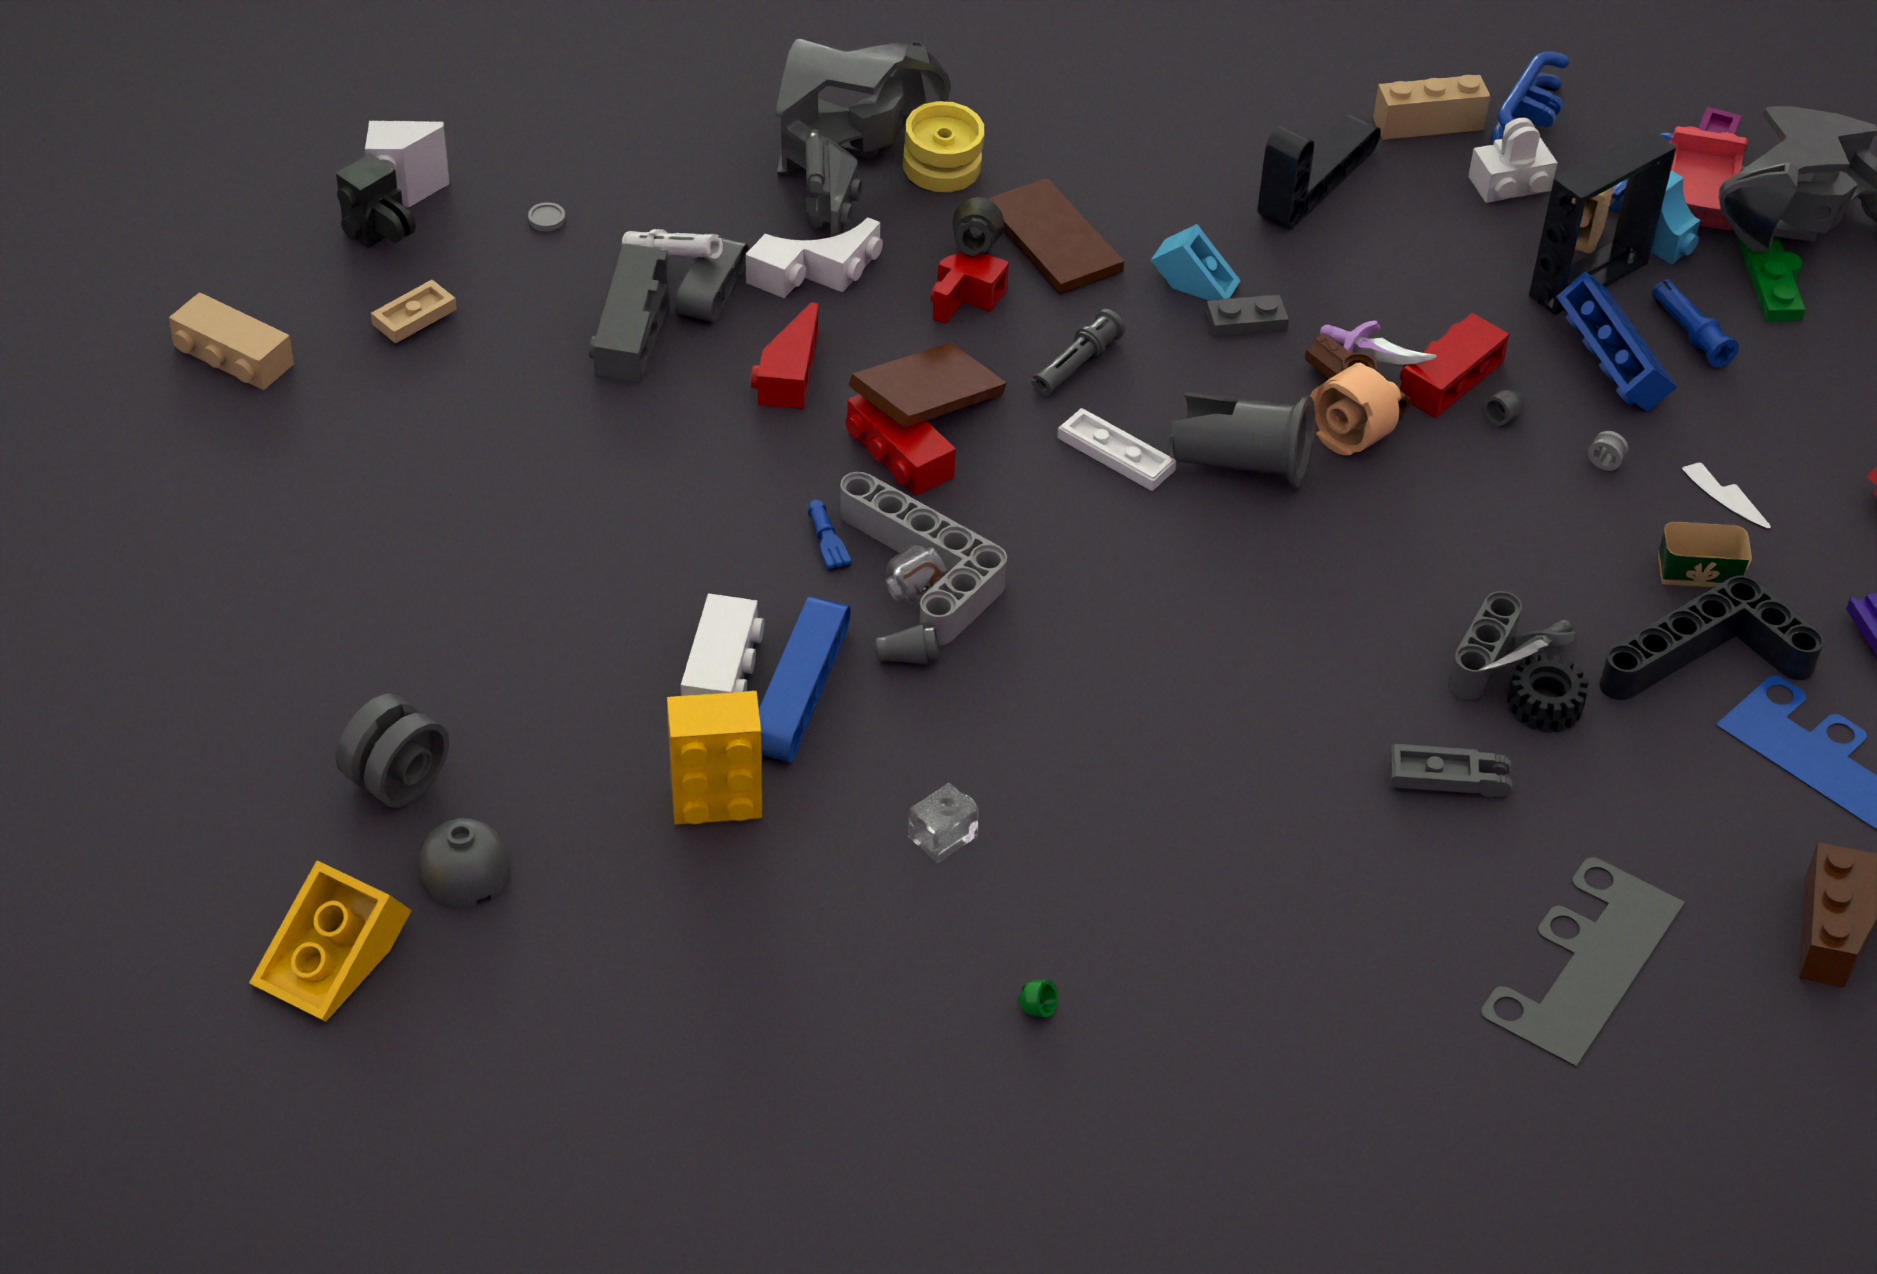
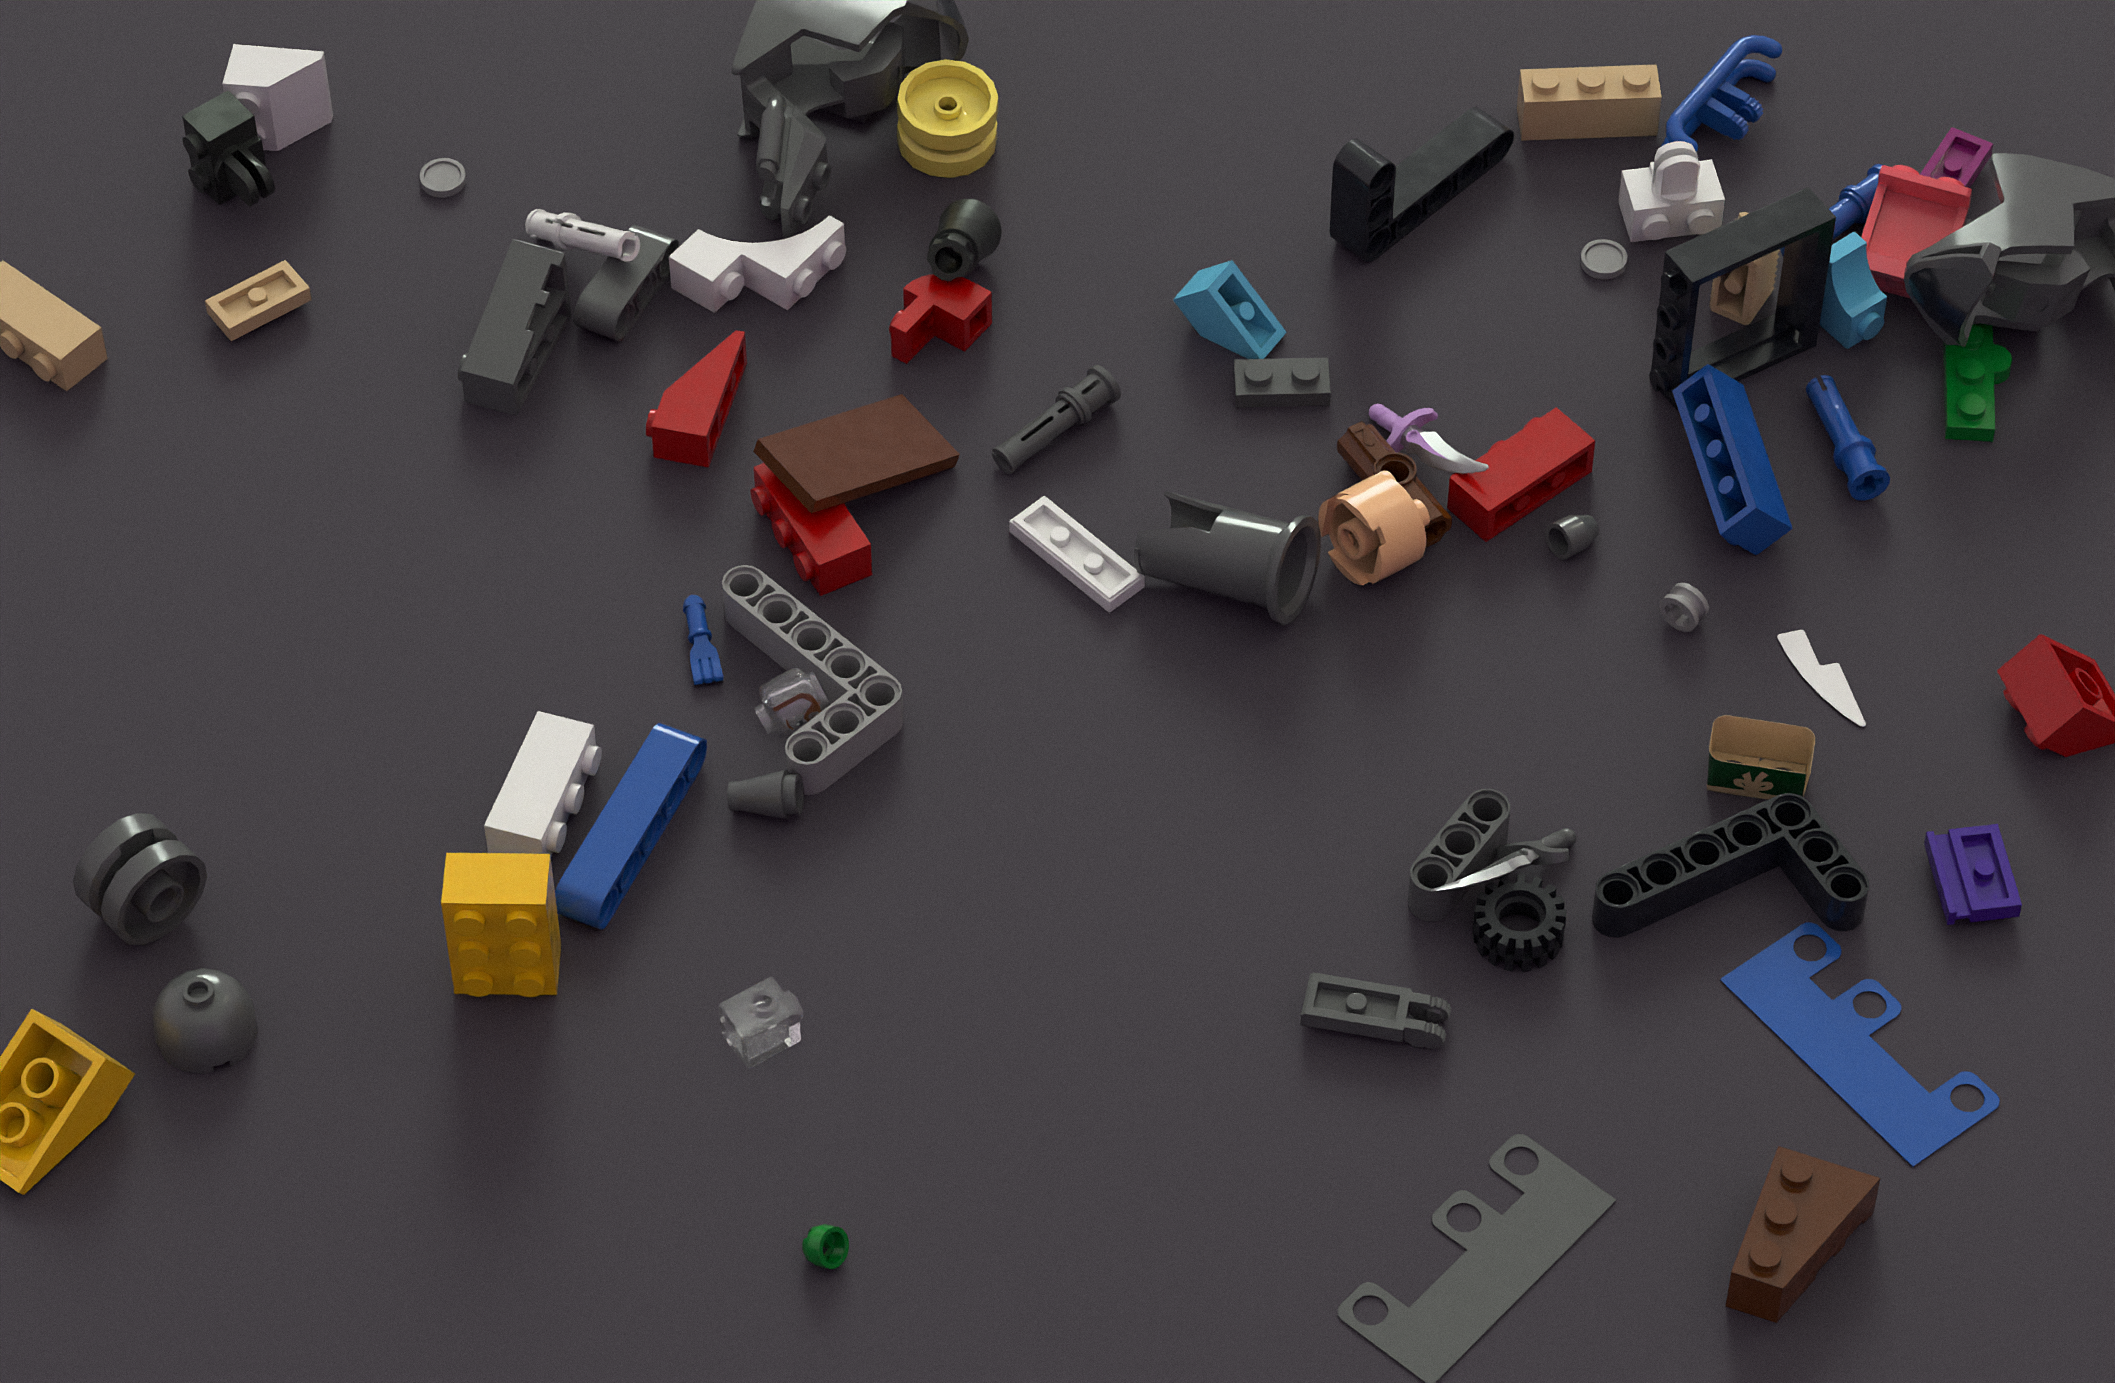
camera: 10 degrees right, 5 degrees up
(1056, 236) = (1065, 251): reddish brown tile -> none
(1469, 215) = (1603, 259): none -> light grey piece

